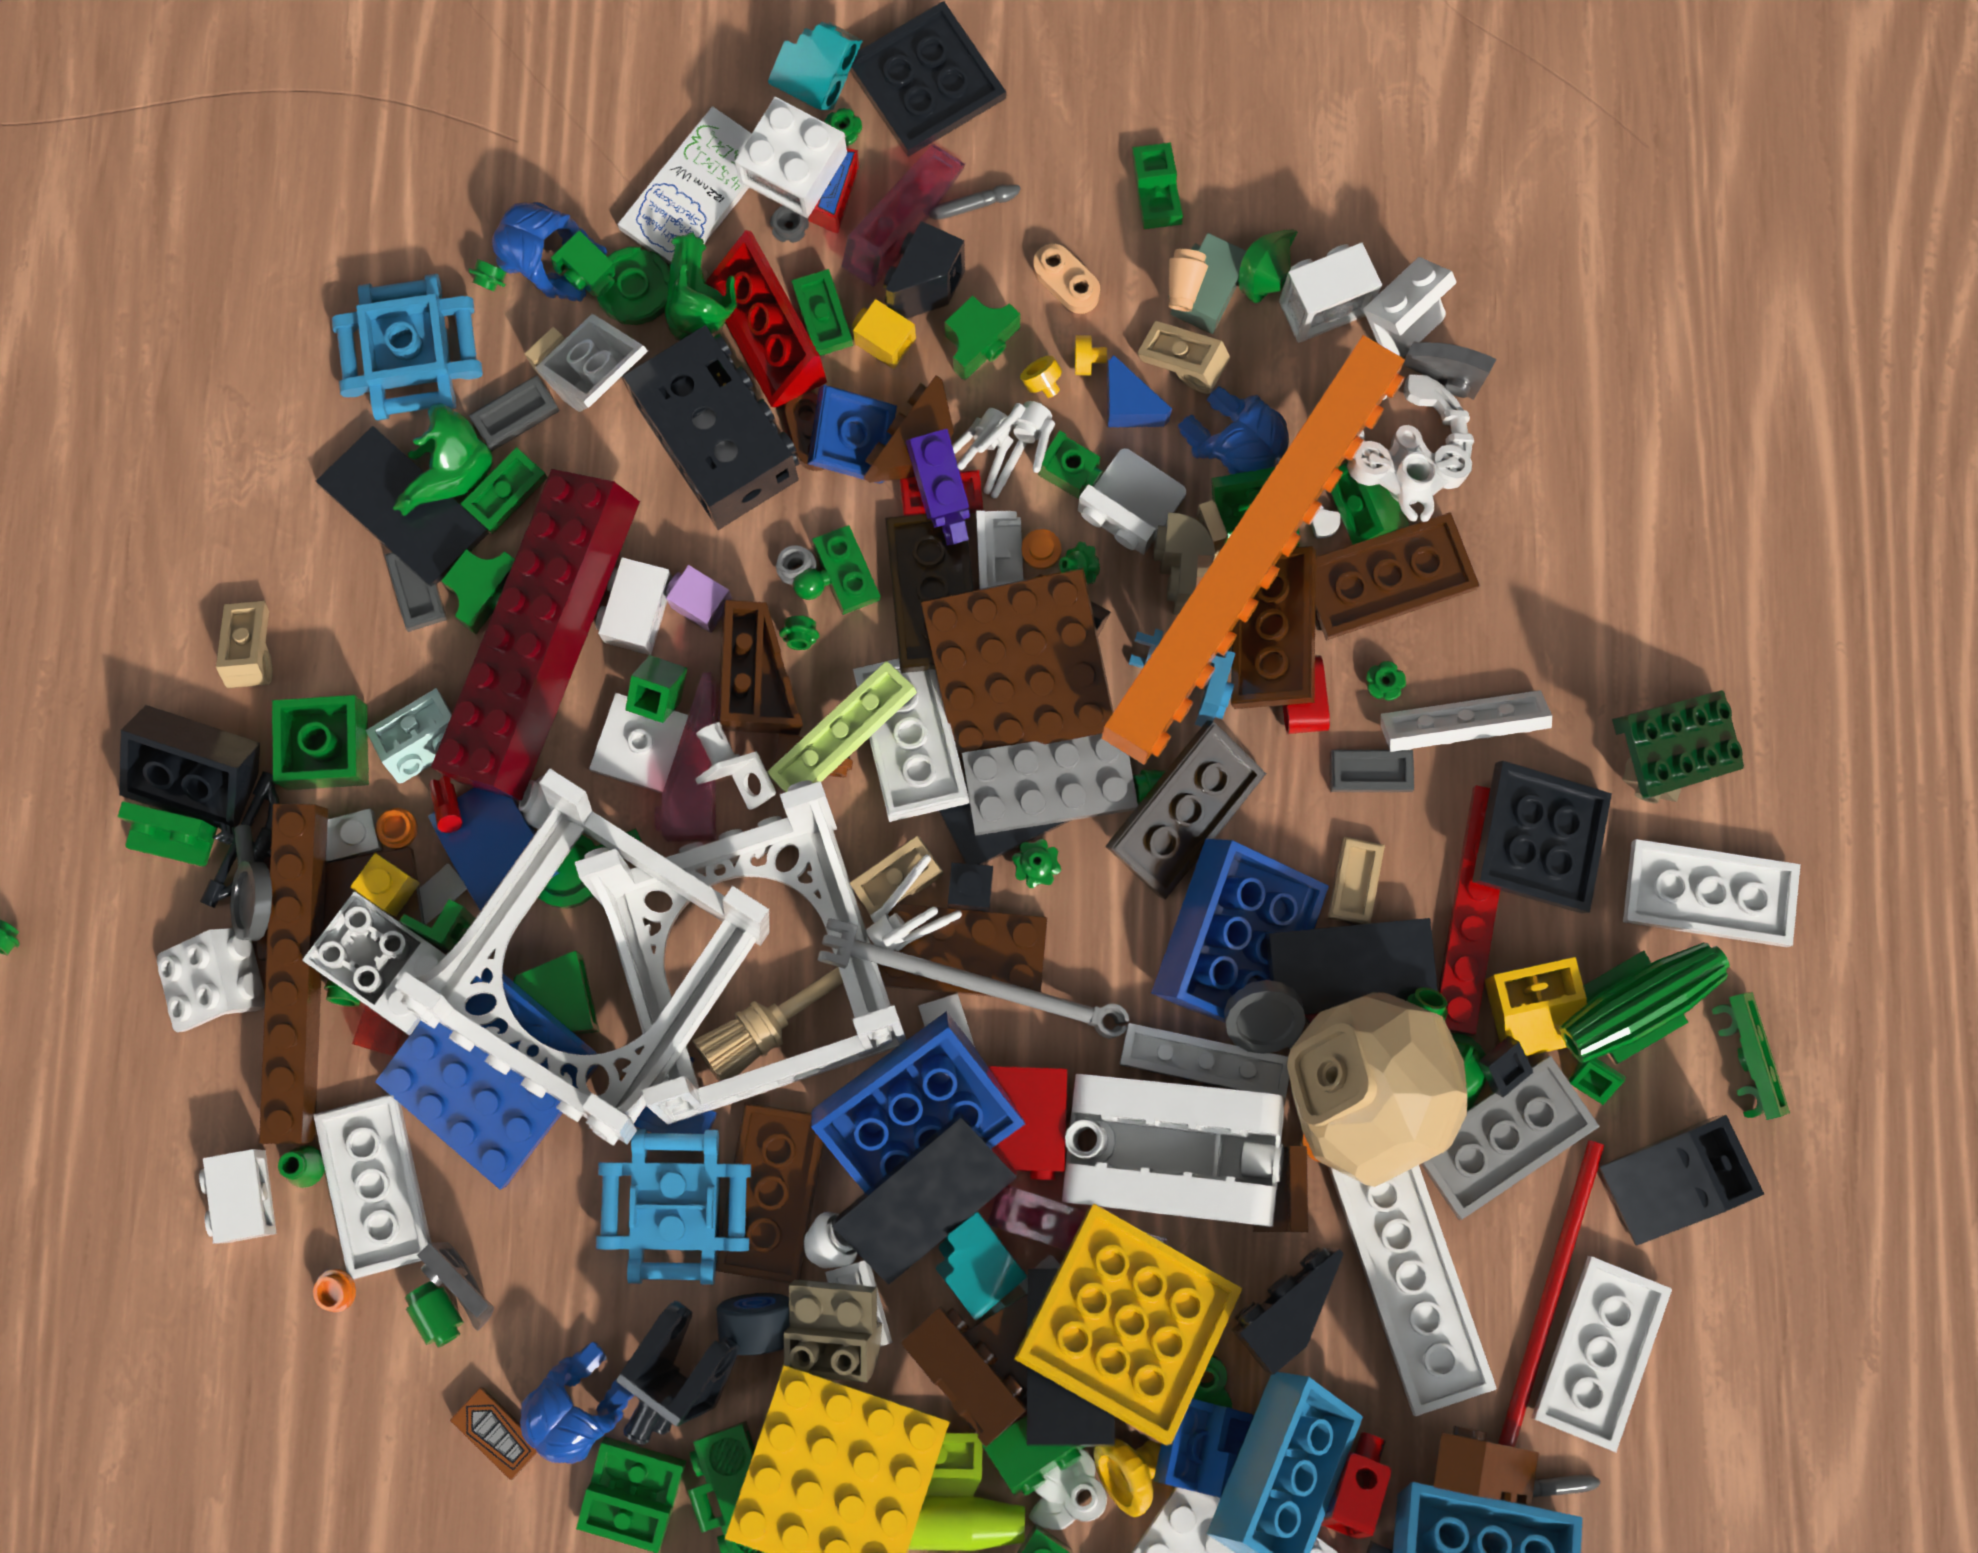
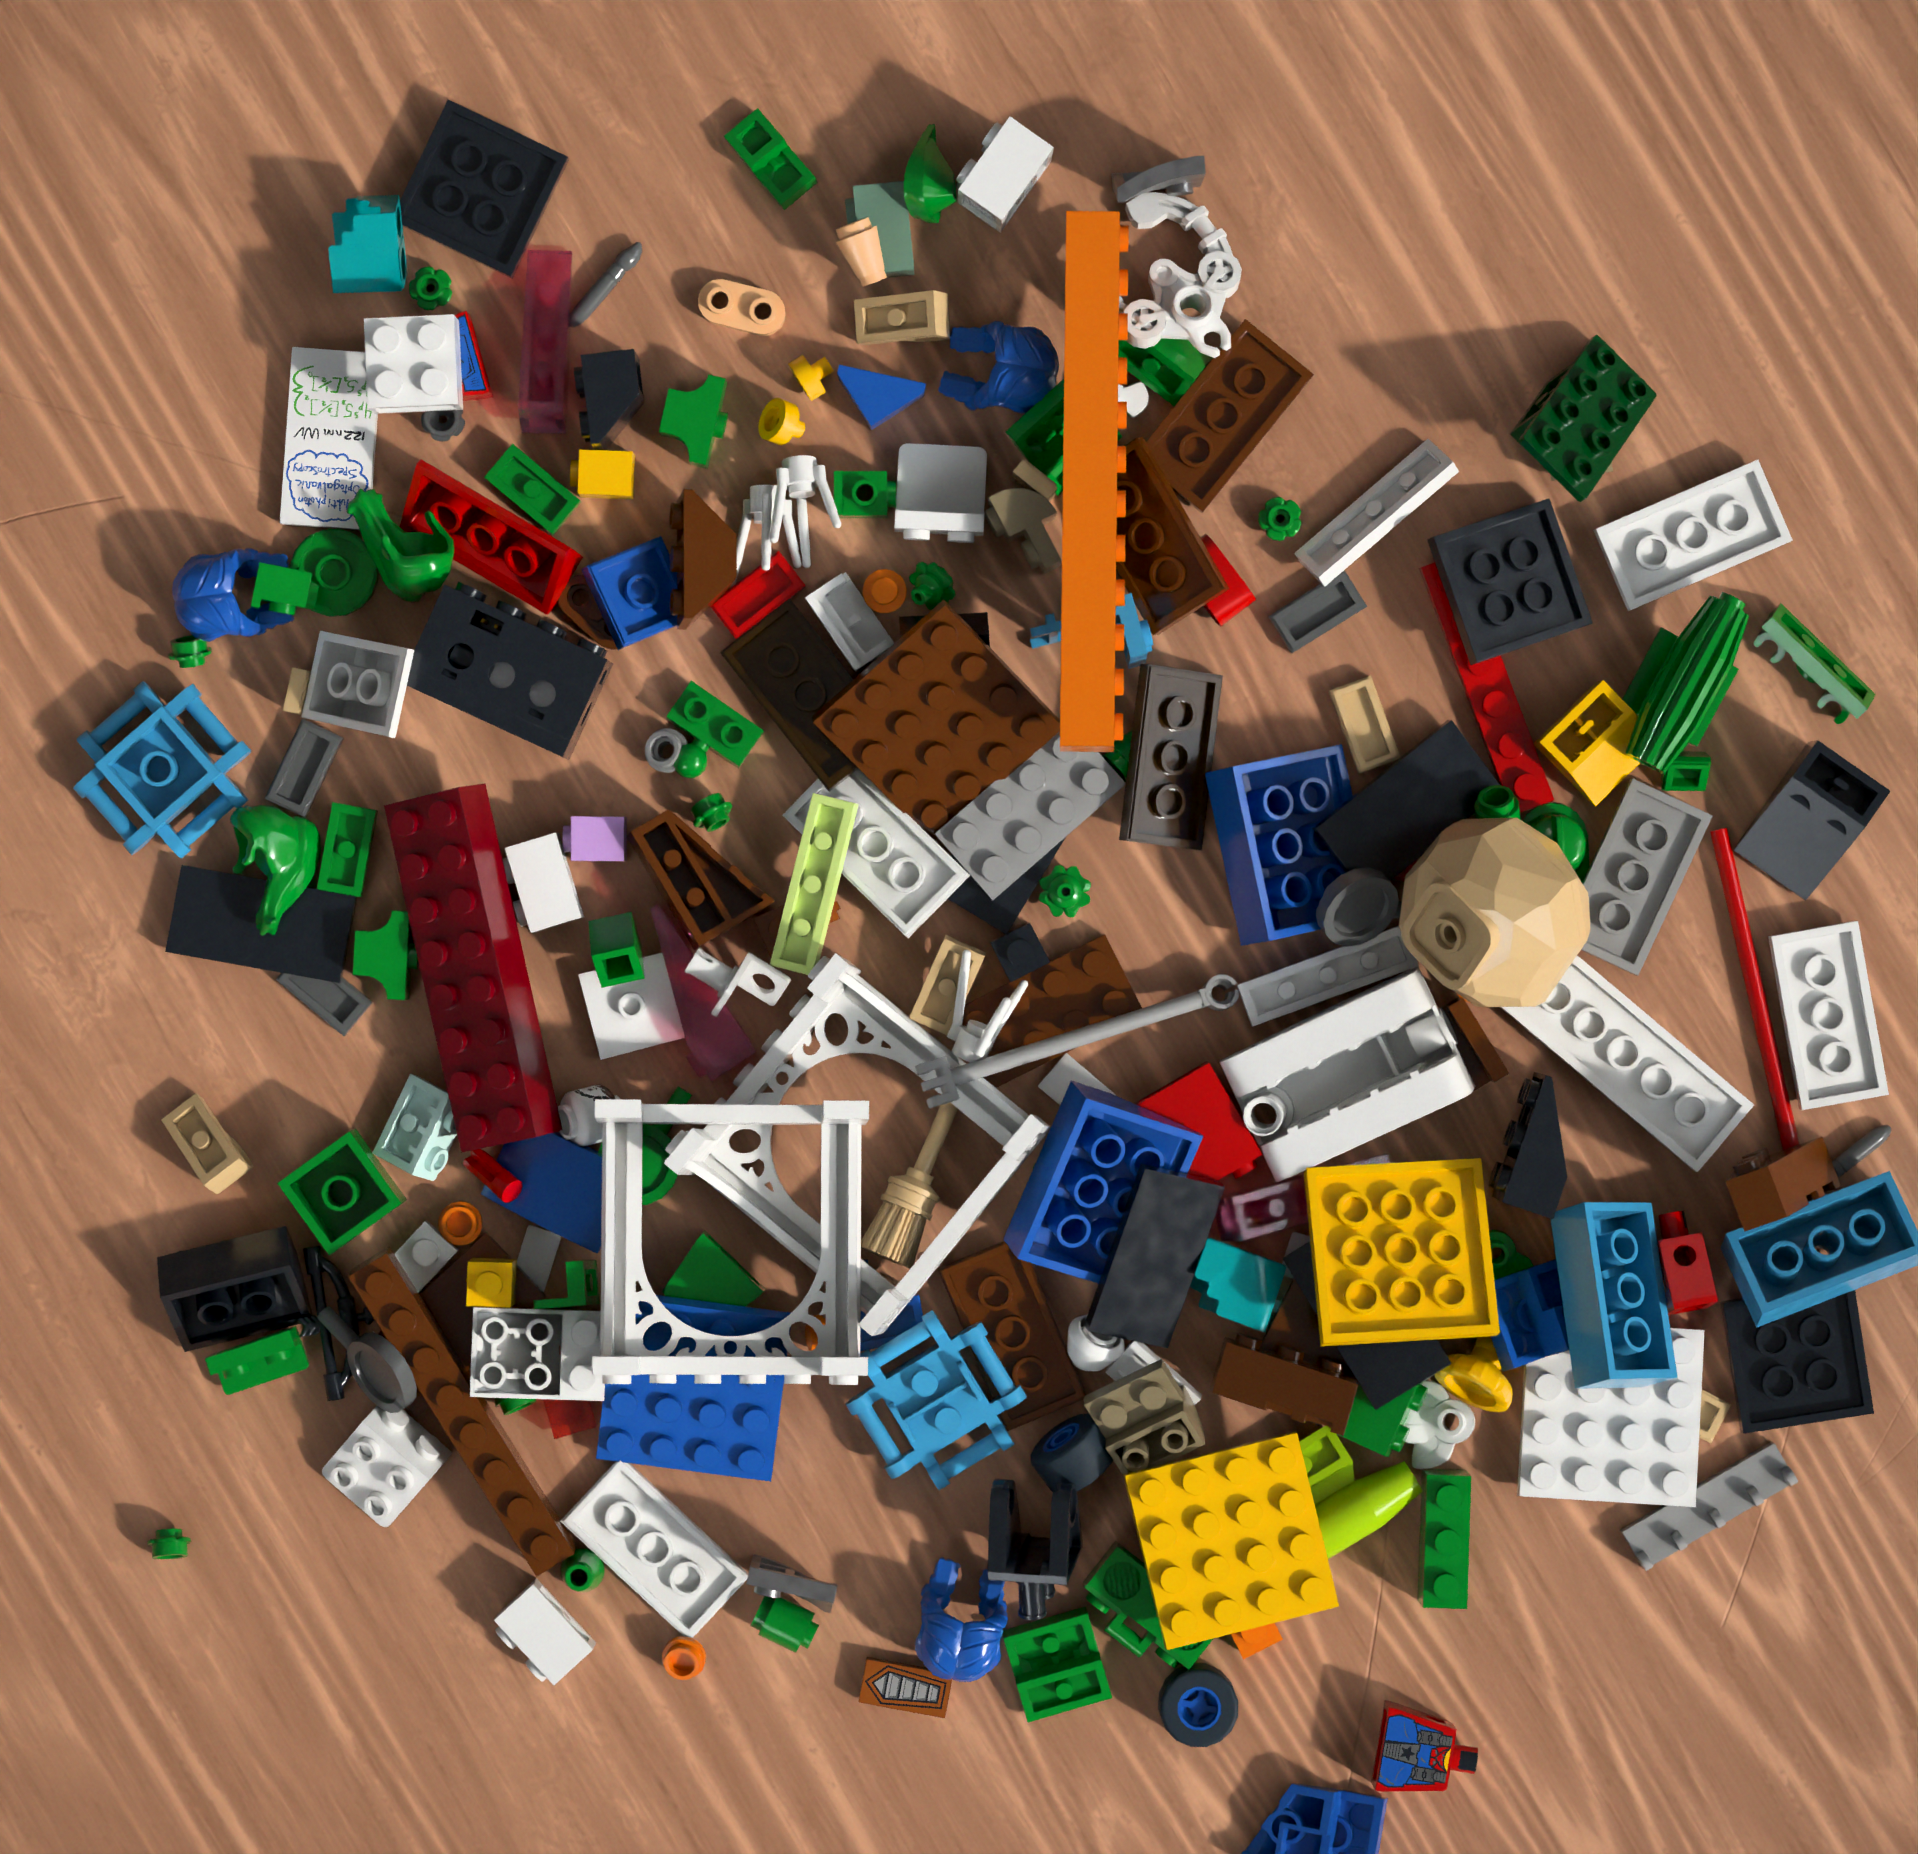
camera: 30 degrees left, 10 degrees up
(940, 484) = (756, 594): dark purple hinge -> none
(1409, 306) = (1088, 144): white bracket -> none
(1505, 1066) = (1598, 815): black plate -> none

